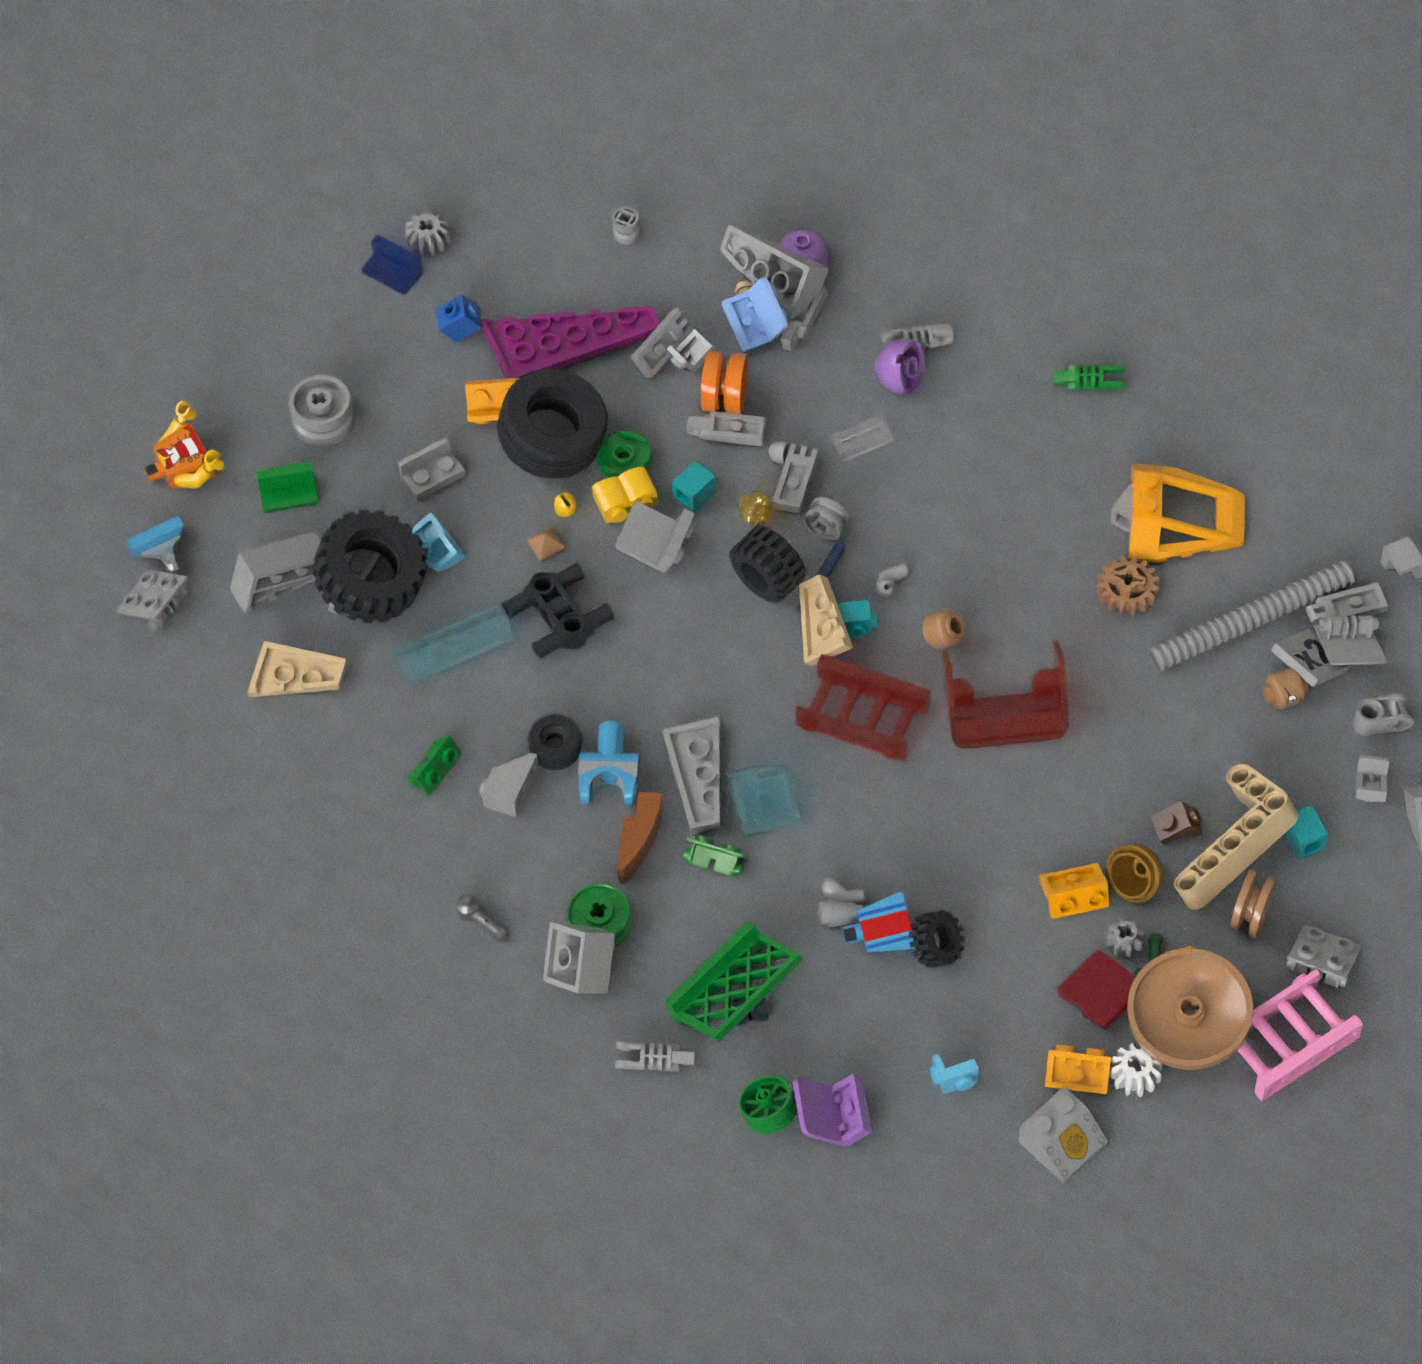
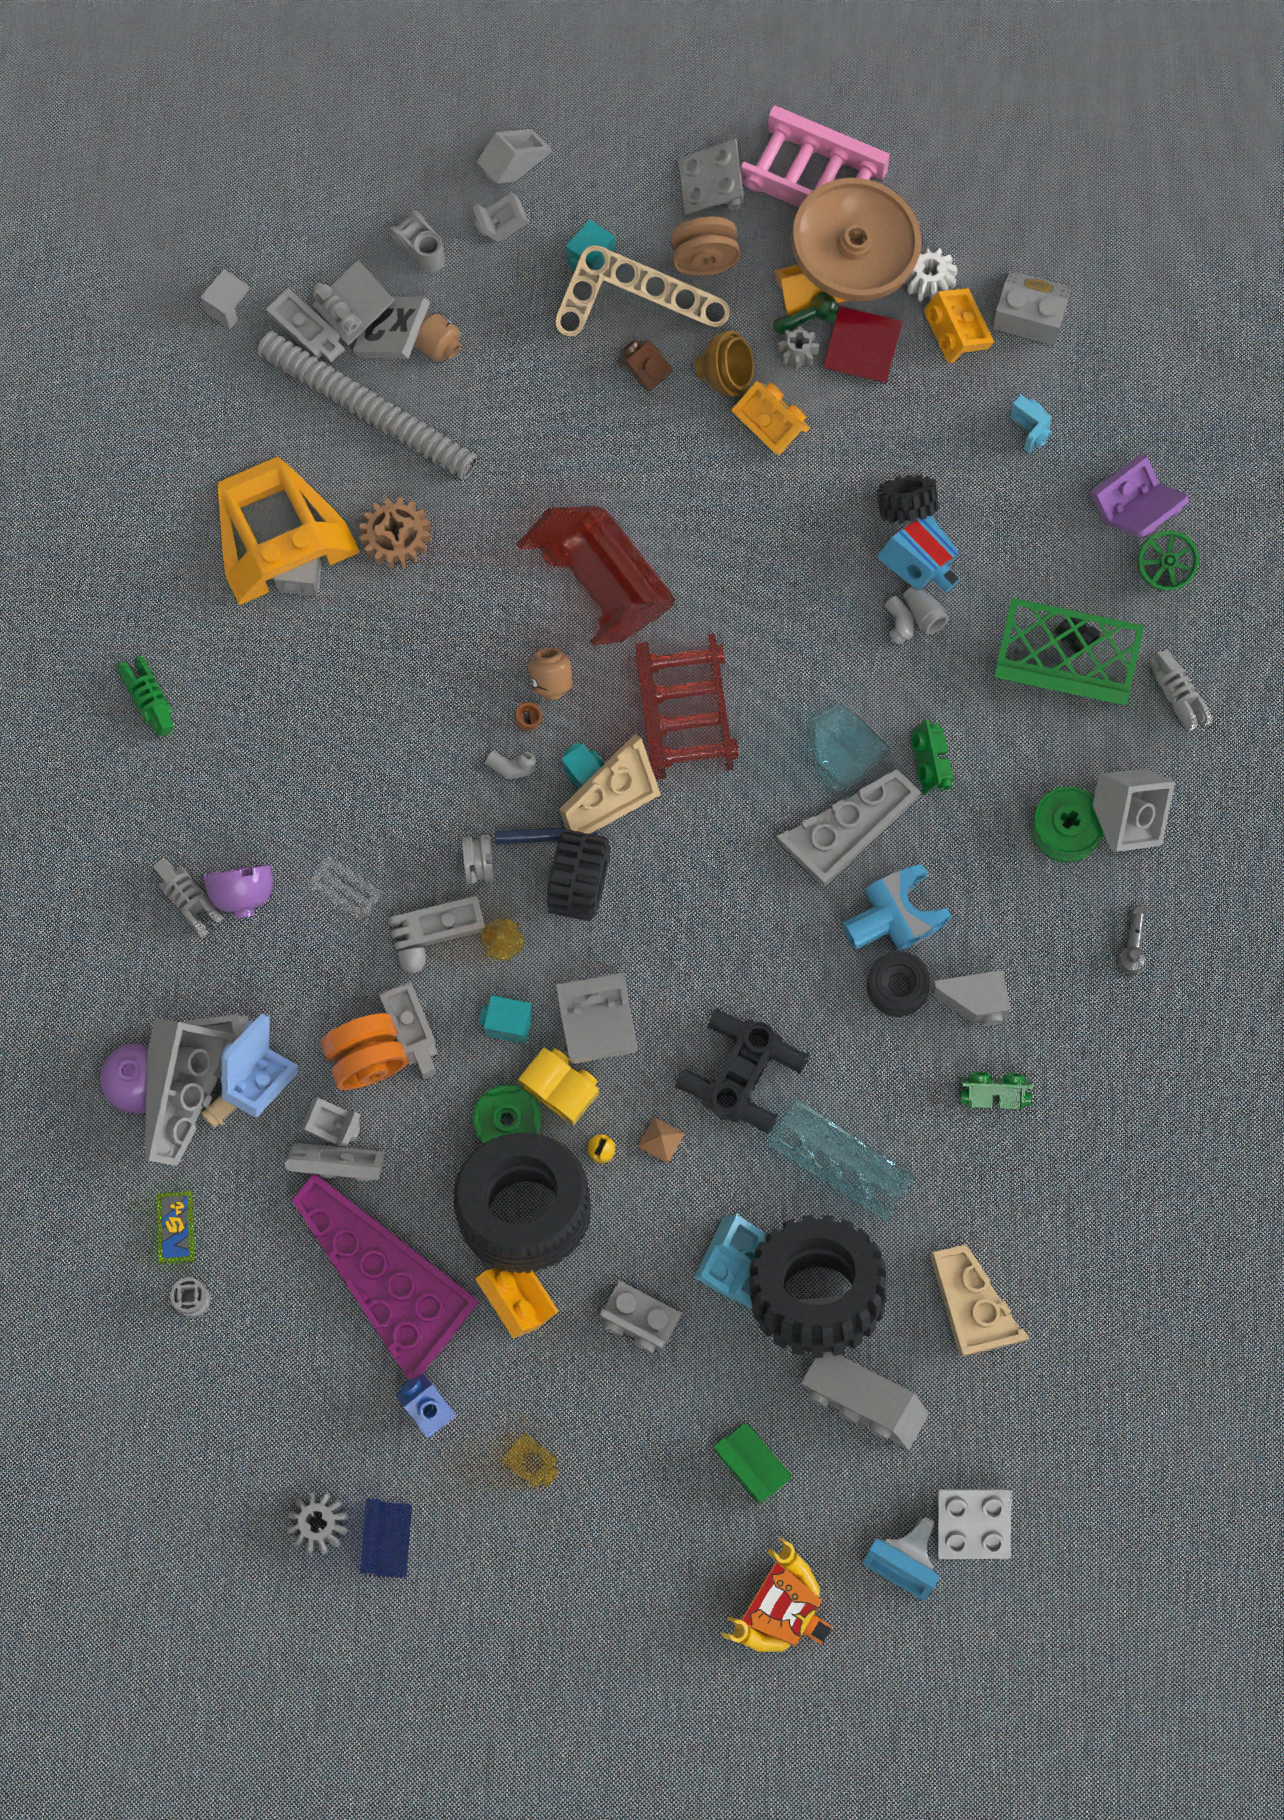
camera: 120 degrees left, 15 degrees up
(321, 410) = (632, 1462): light grey wheel -> none
(380, 363) = (520, 1451): none -> clear yellow brick
(639, 834) = (955, 839): dark orange slope -> none
(681, 240) = (176, 1227): none -> tile
(922, 599) = (534, 716): none -> dark orange hinge

